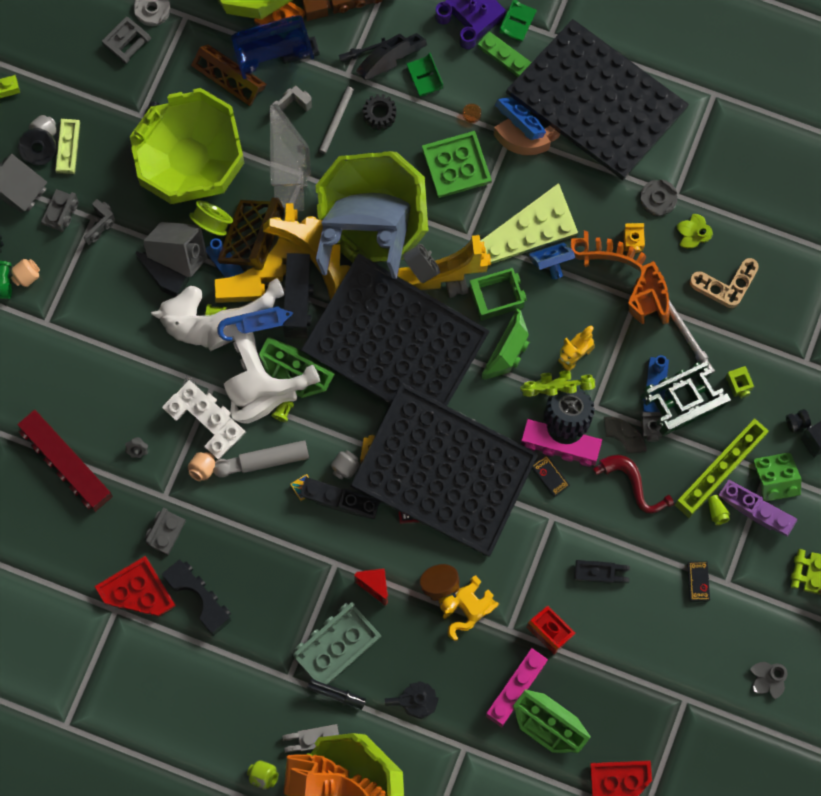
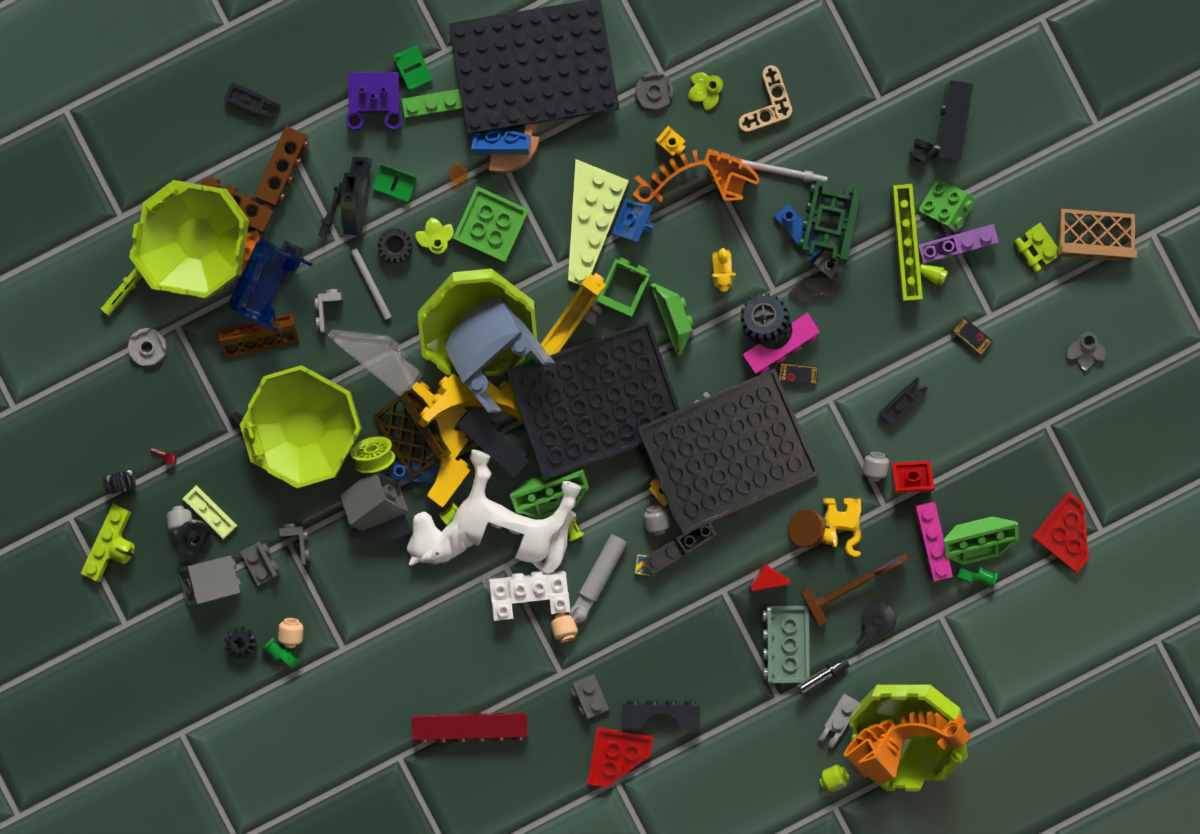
camera: 50 degrees left, 15 degrees up
(35, 64) = (119, 481): none -> black gear
(83, 87) = (170, 458): none -> dark red hand
(122, 35) = (152, 393): dark grey plate -> none
(136, 448) = (506, 664): dark grey piece -> none
(254, 321) = (492, 496): blue plate -> none
(387, 641) = (817, 604): none -> reddish brown piece
(412, 132) = (433, 233): none -> lime plate
(421, 263) = (555, 329): dark grey beam -> none
(523, 750) = (981, 576): none -> green connector
(532, 388) = (736, 309): lime plant -> none
(534, 593) = (876, 466): none -> light grey head
(624, 464) = (841, 310): dark red animal -> none
(740, 376) = (849, 160): lime brick -> none

